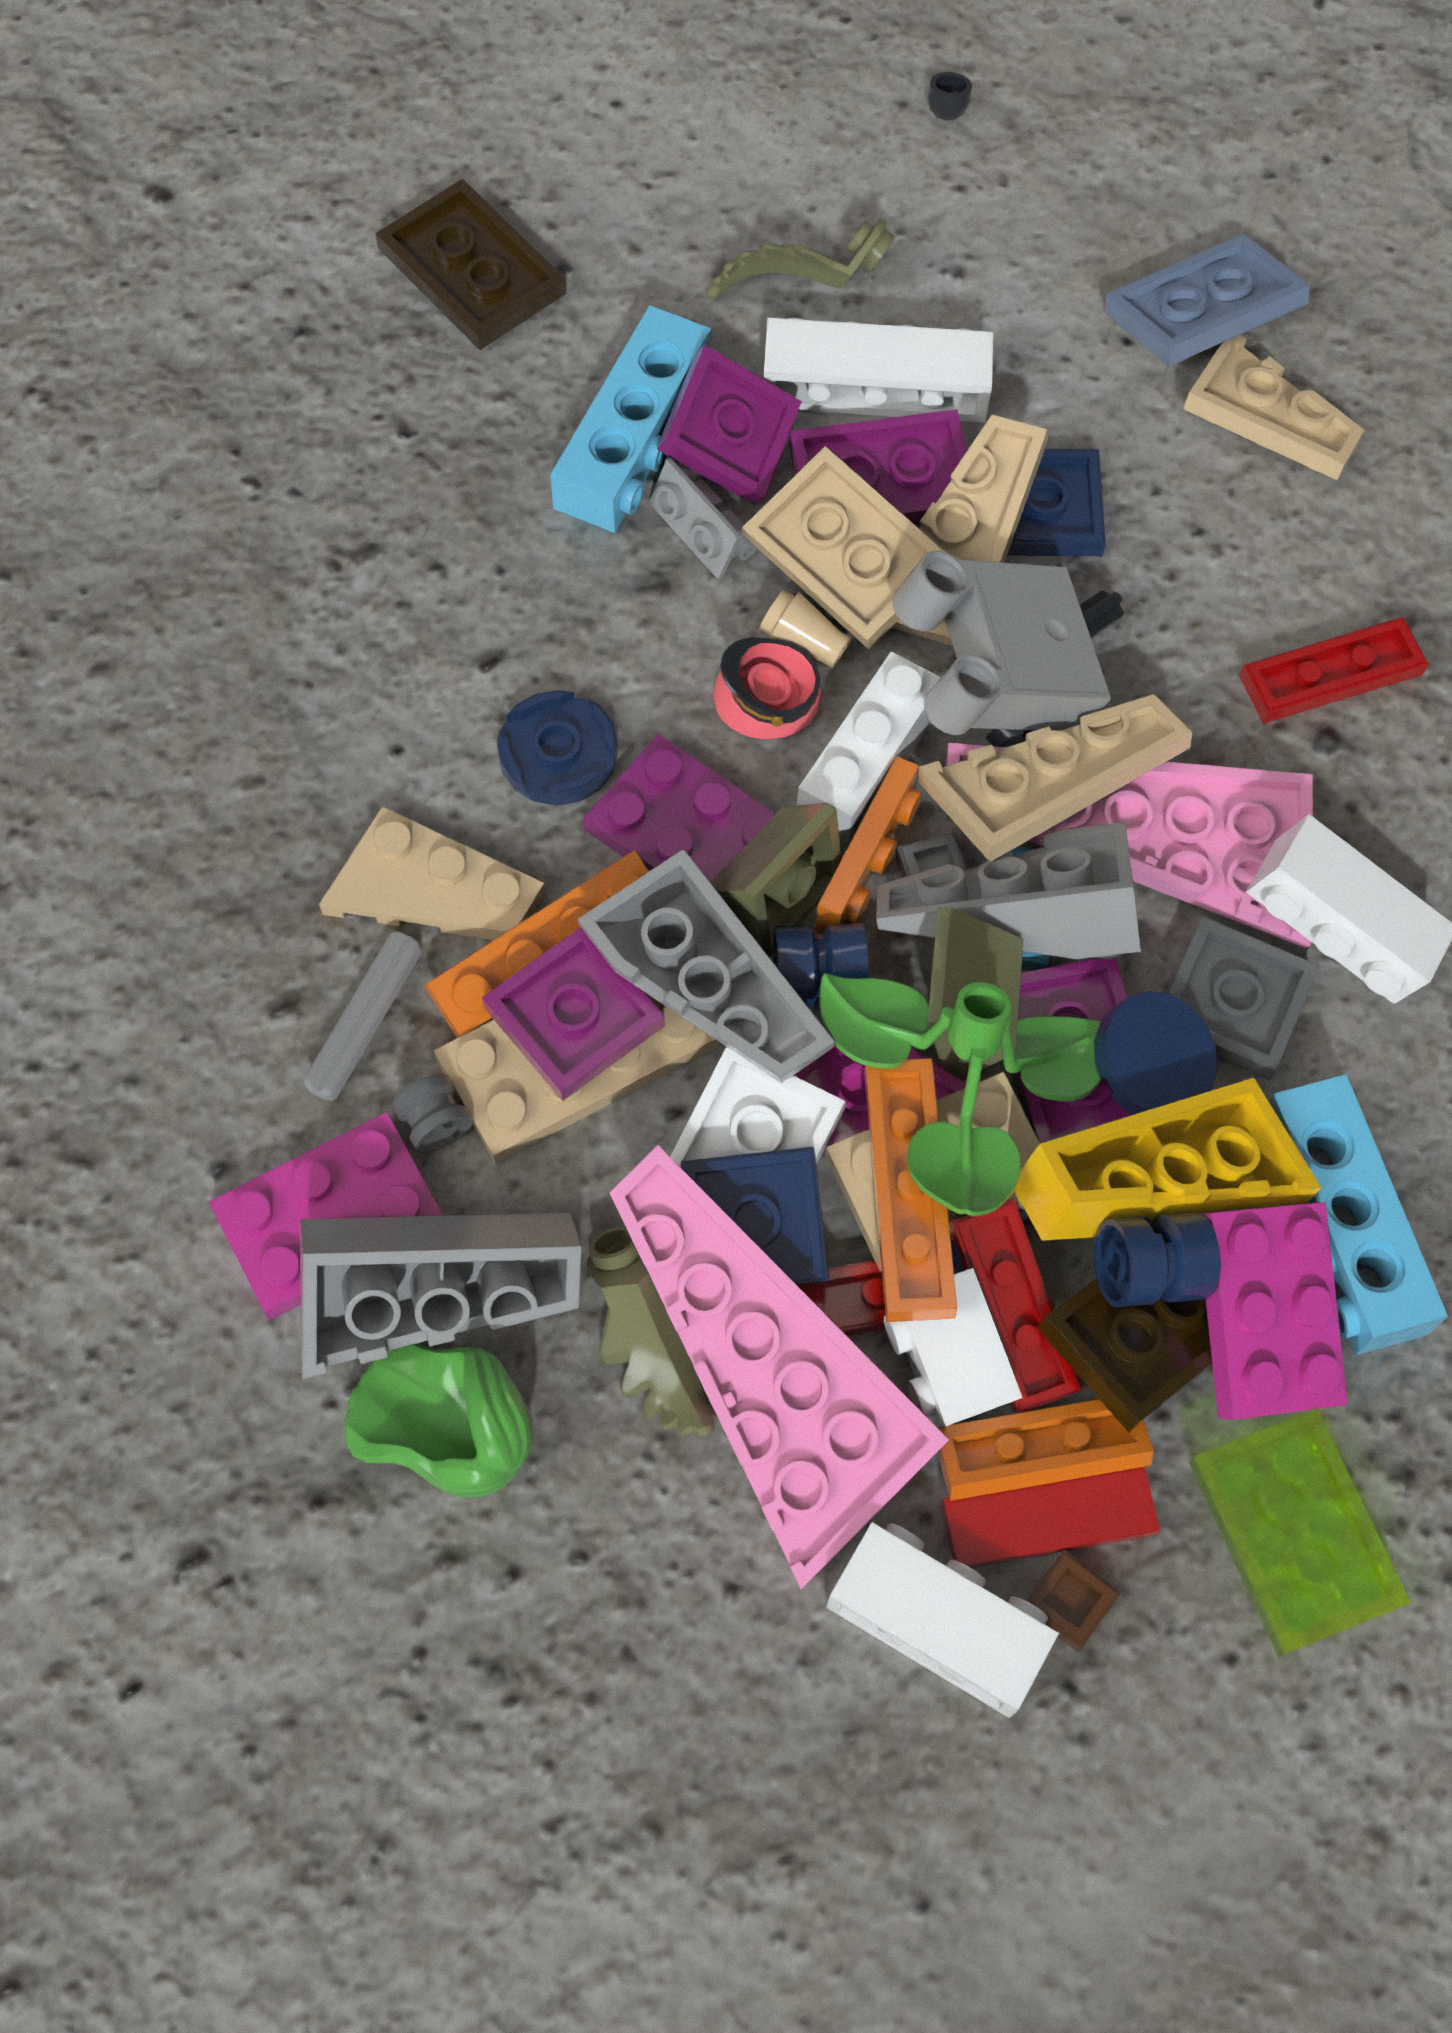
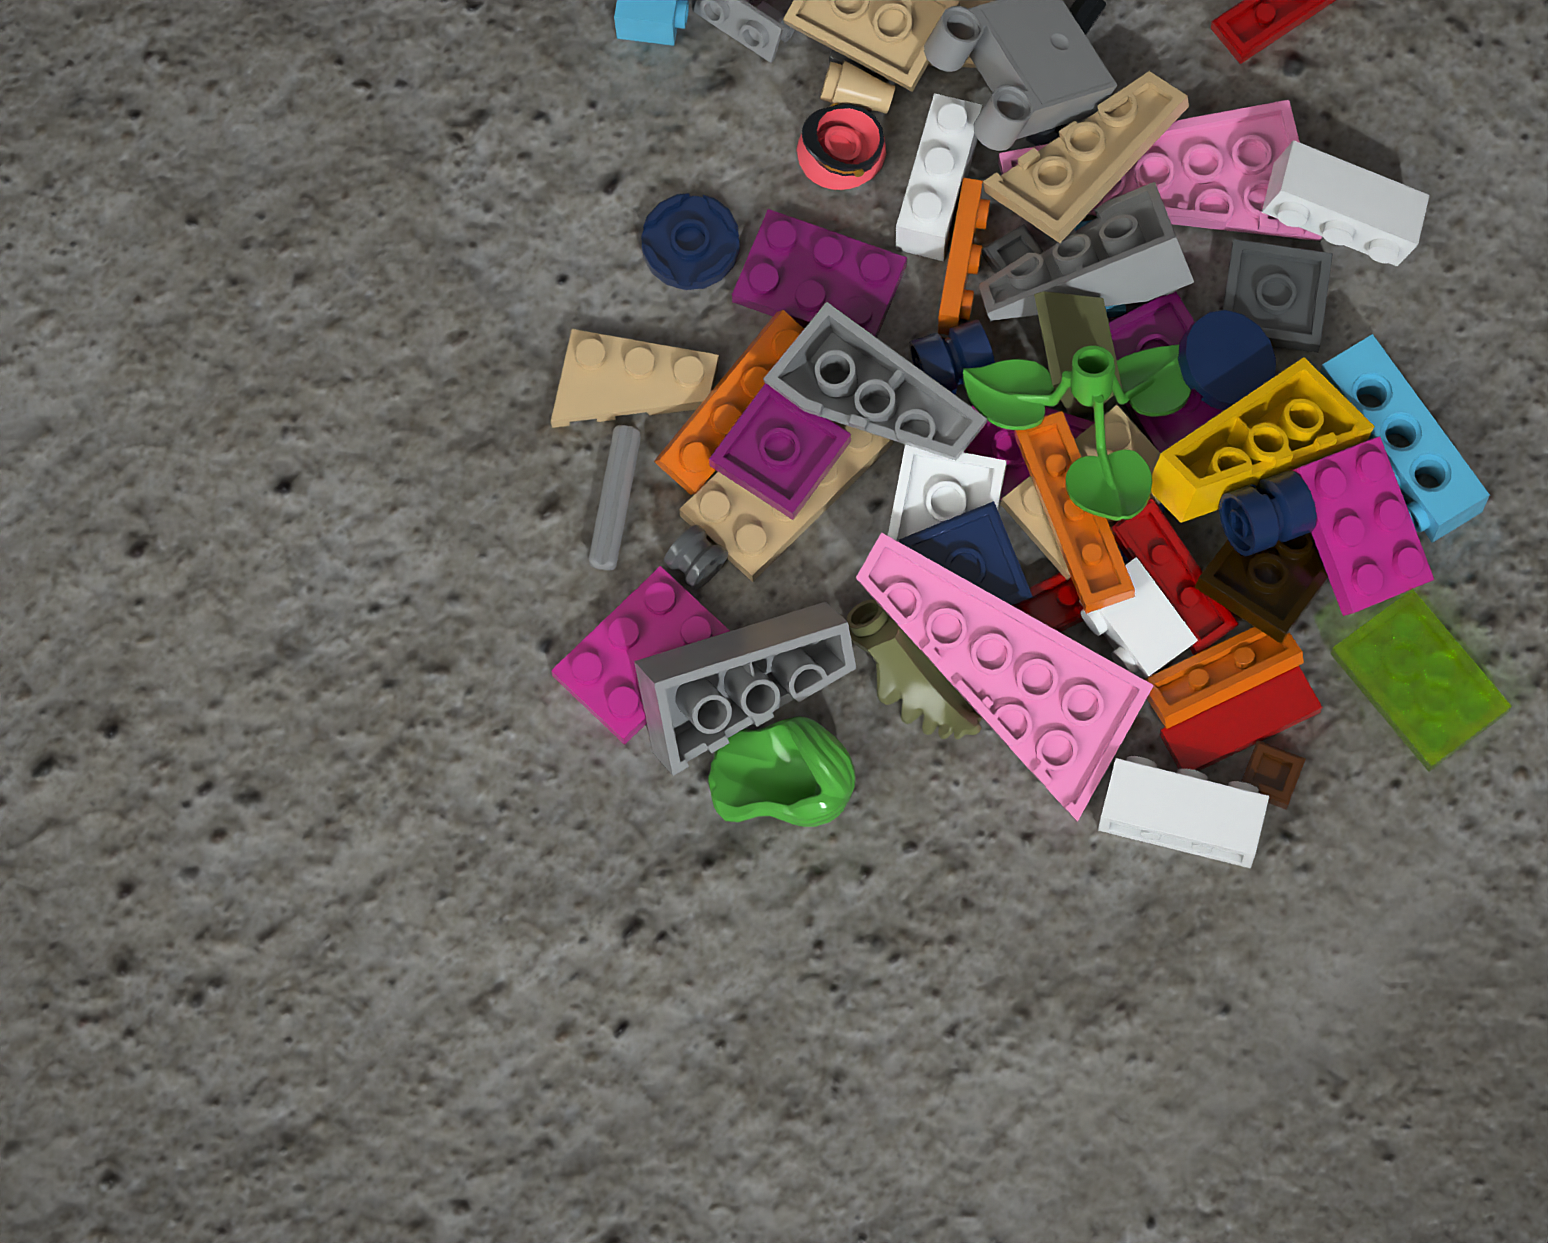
camera: 10 degrees left, 5 degrees up
(782, 870) = (902, 293): olive slope -> none

